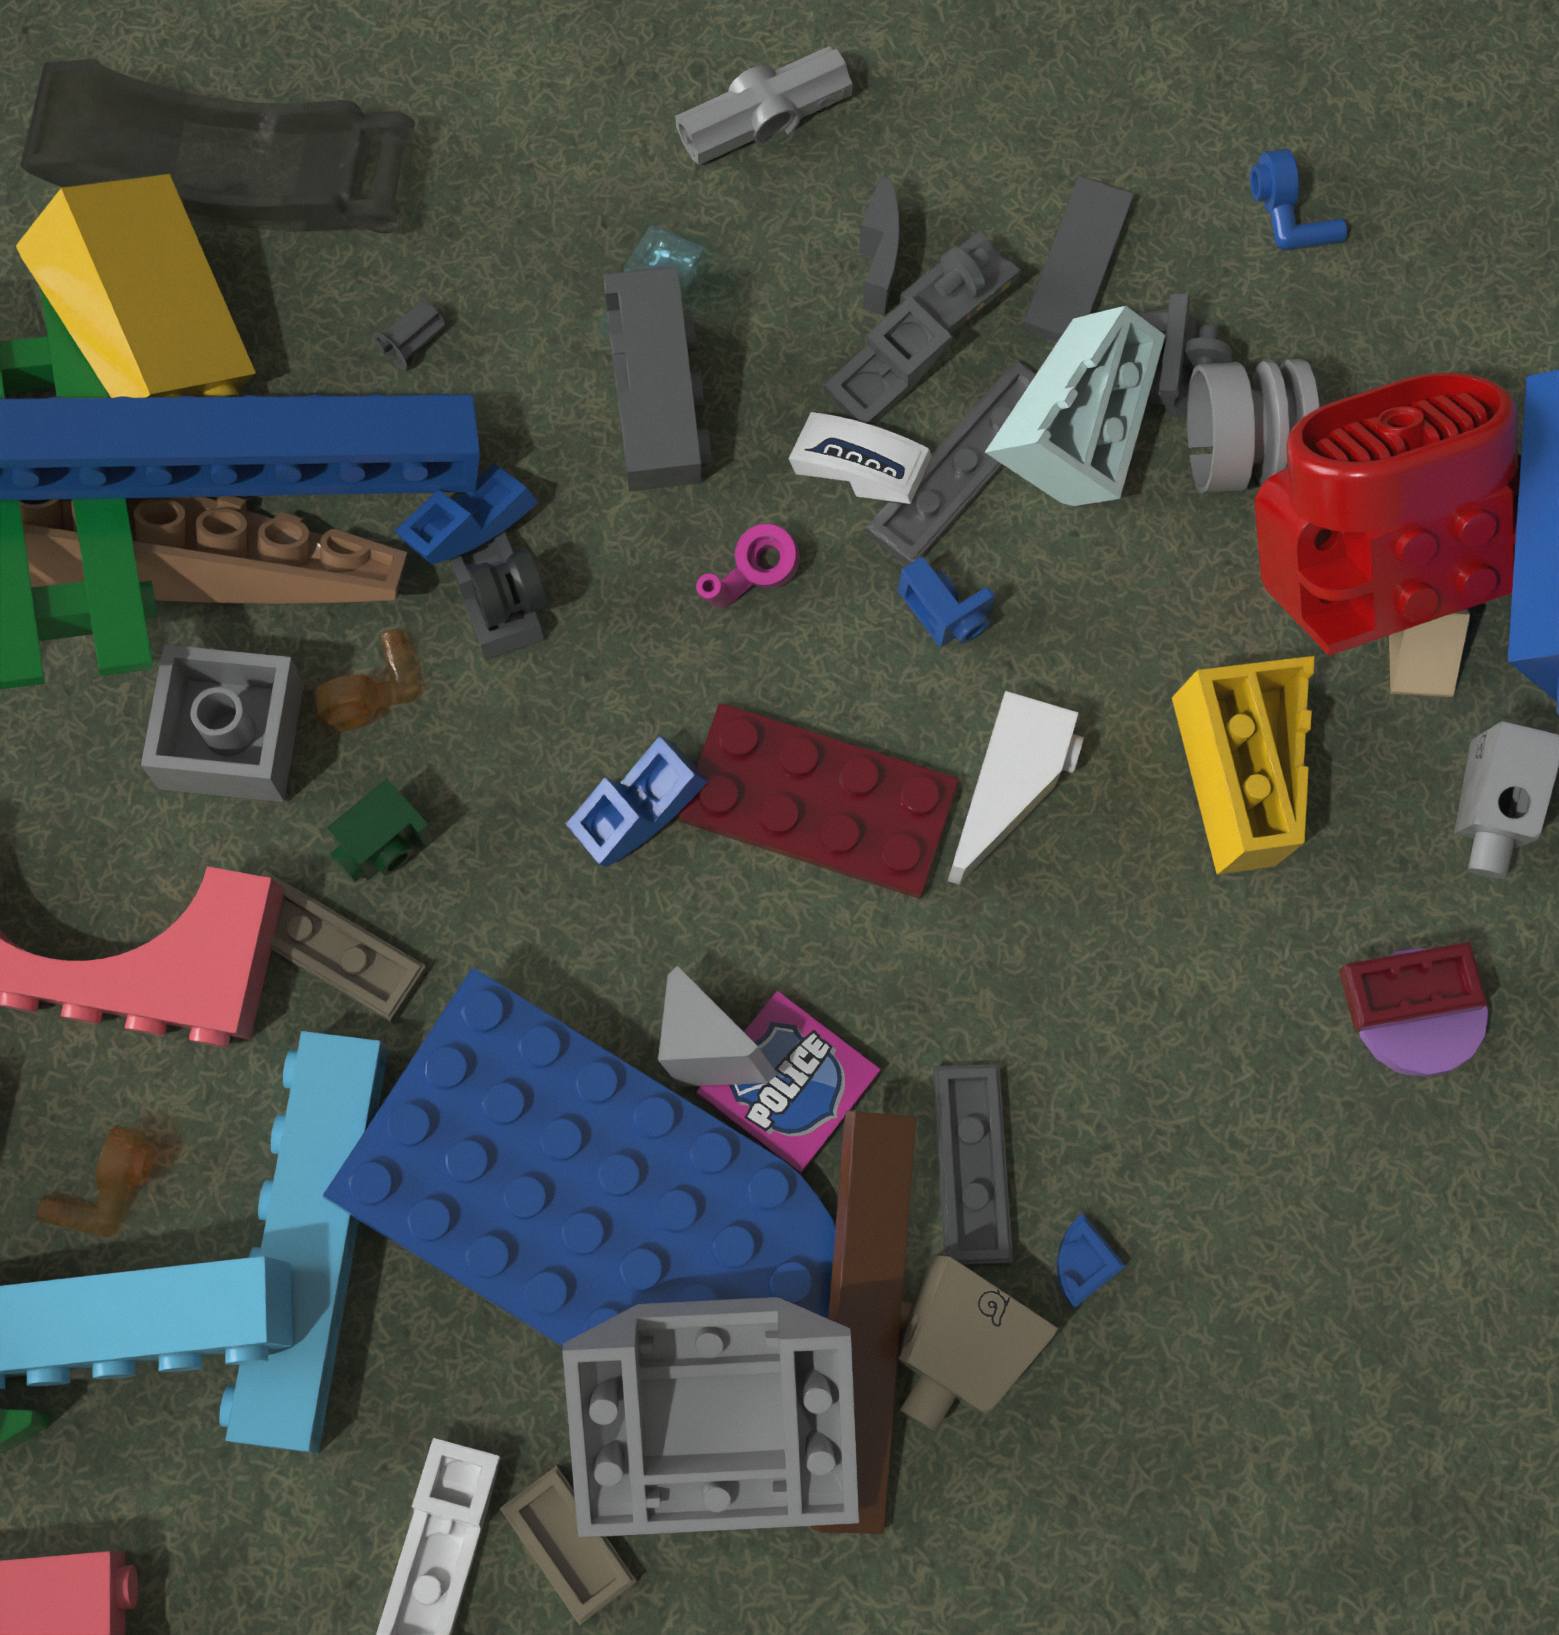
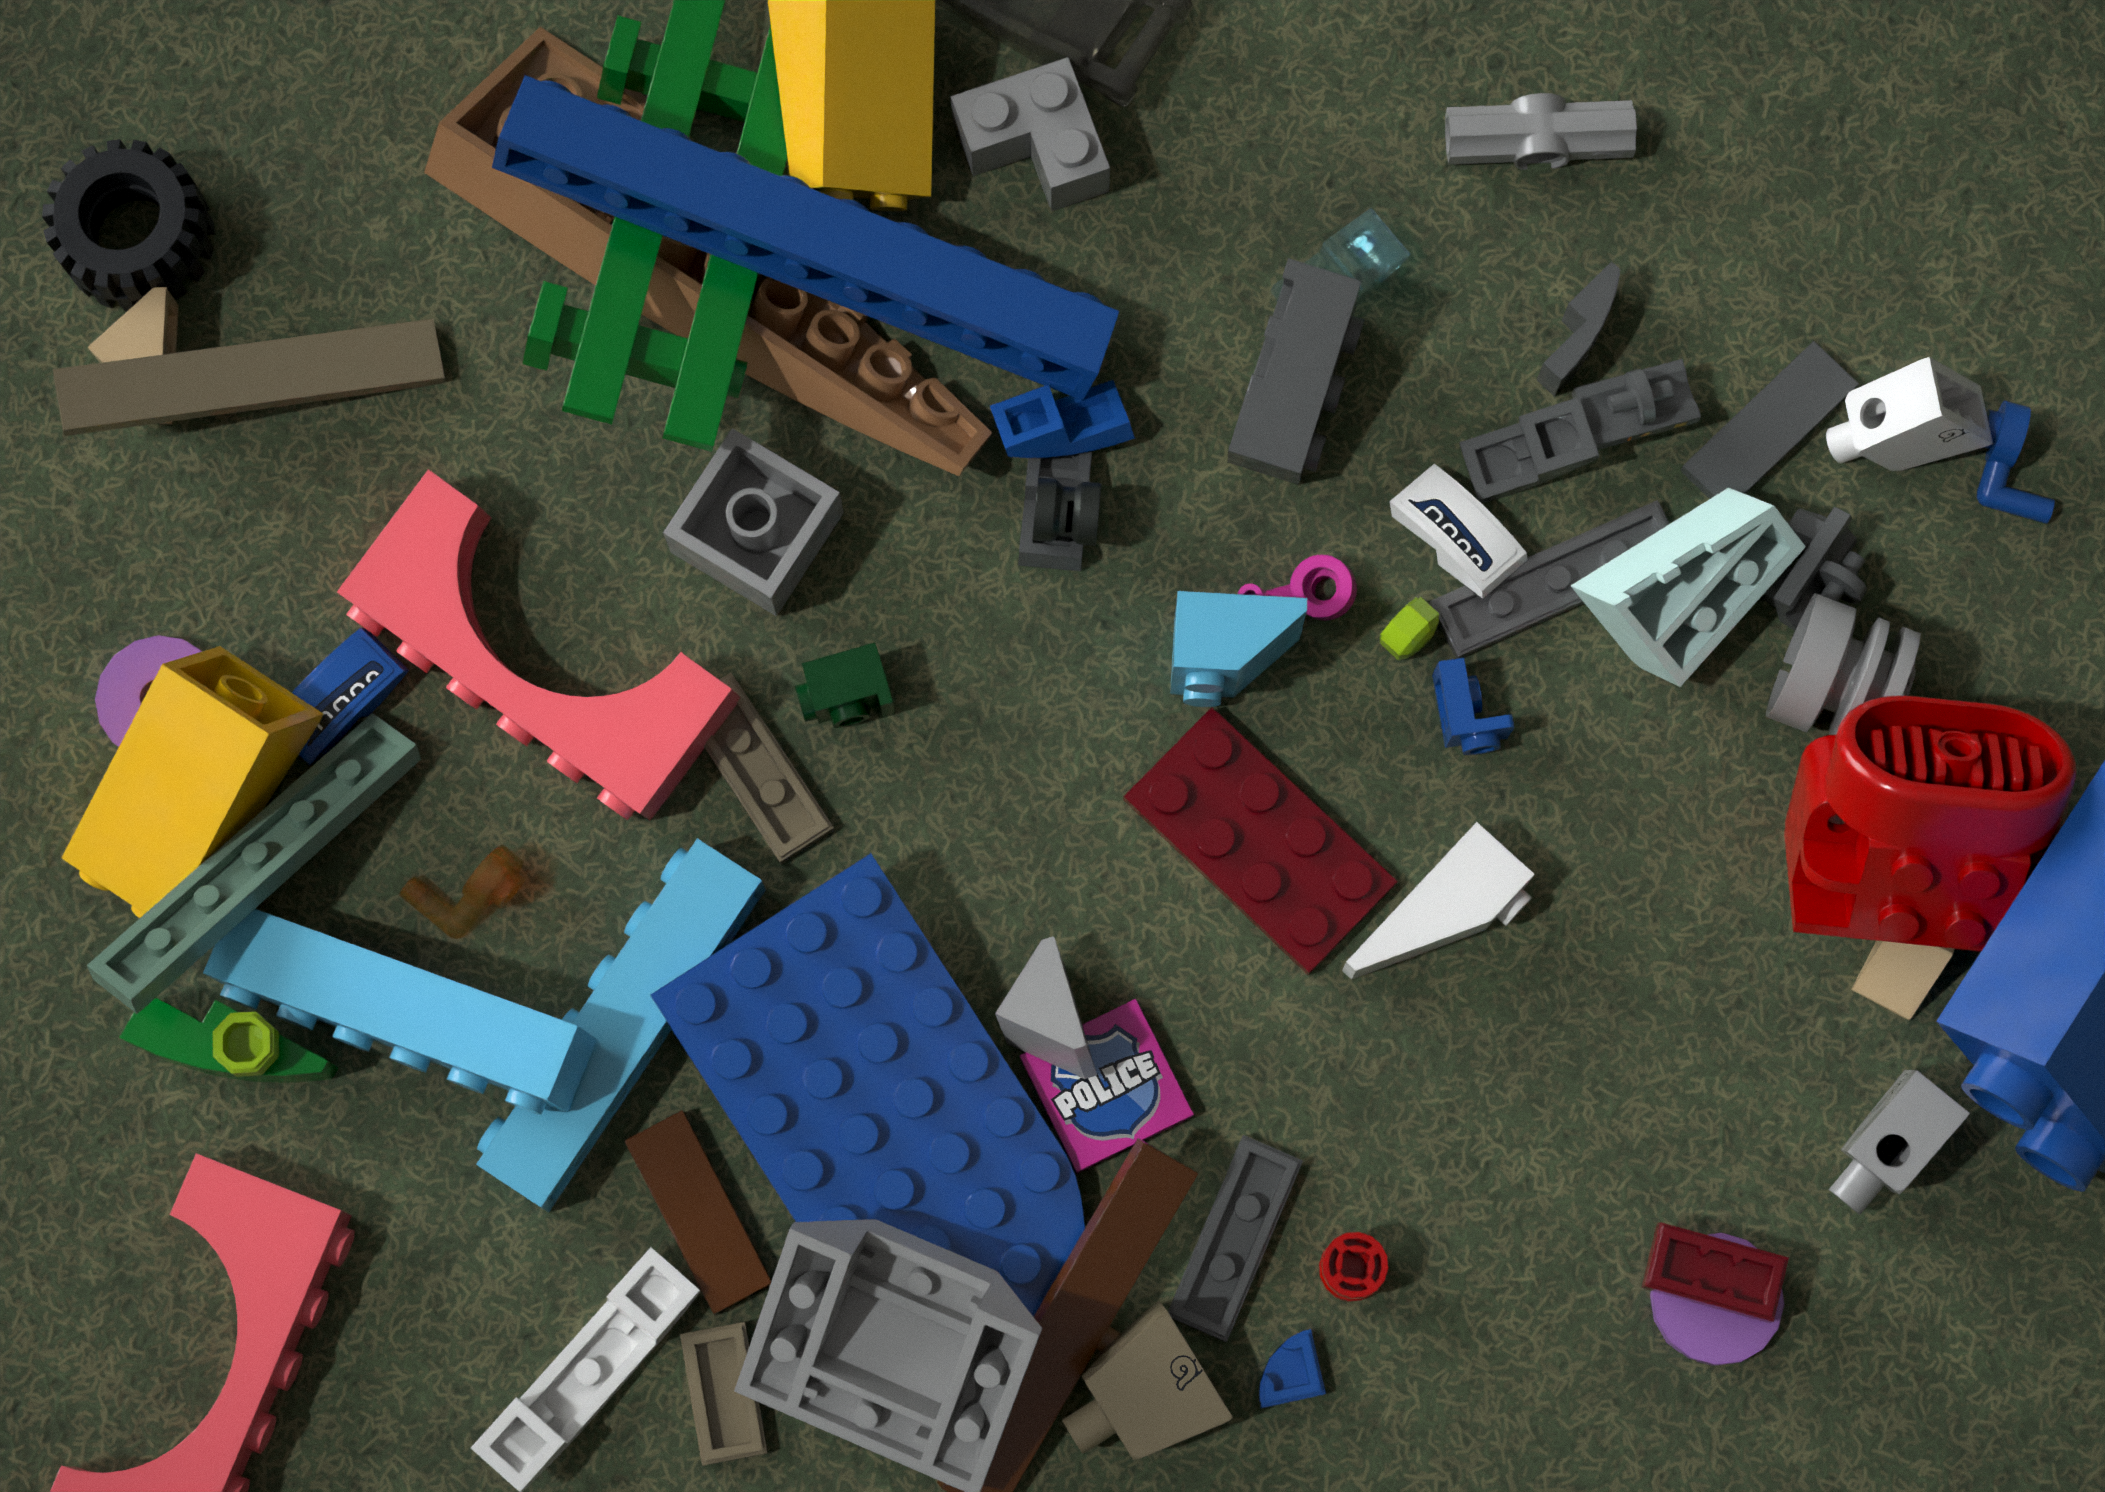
camera: 30 degrees right, 5 degrees up
(318, 271) = (1038, 118): none -> light grey brick
(353, 698) = (878, 550): clear orange plate -> none
(410, 333) = (1094, 214): dark grey piece -> none
(463, 1383) = (698, 1212): none -> reddish brown tile
(630, 812) = (1082, 771): blue slope -> none
(706, 633) = (1229, 641): none -> medium azure slope
(861, 558) = (1410, 629): none -> lime tile
(1086, 1147) = (1344, 1273): none -> red wheel
(1195, 195) = (1912, 418): none -> white torso
(1247, 758) = (1673, 989): yellow wedge -> none

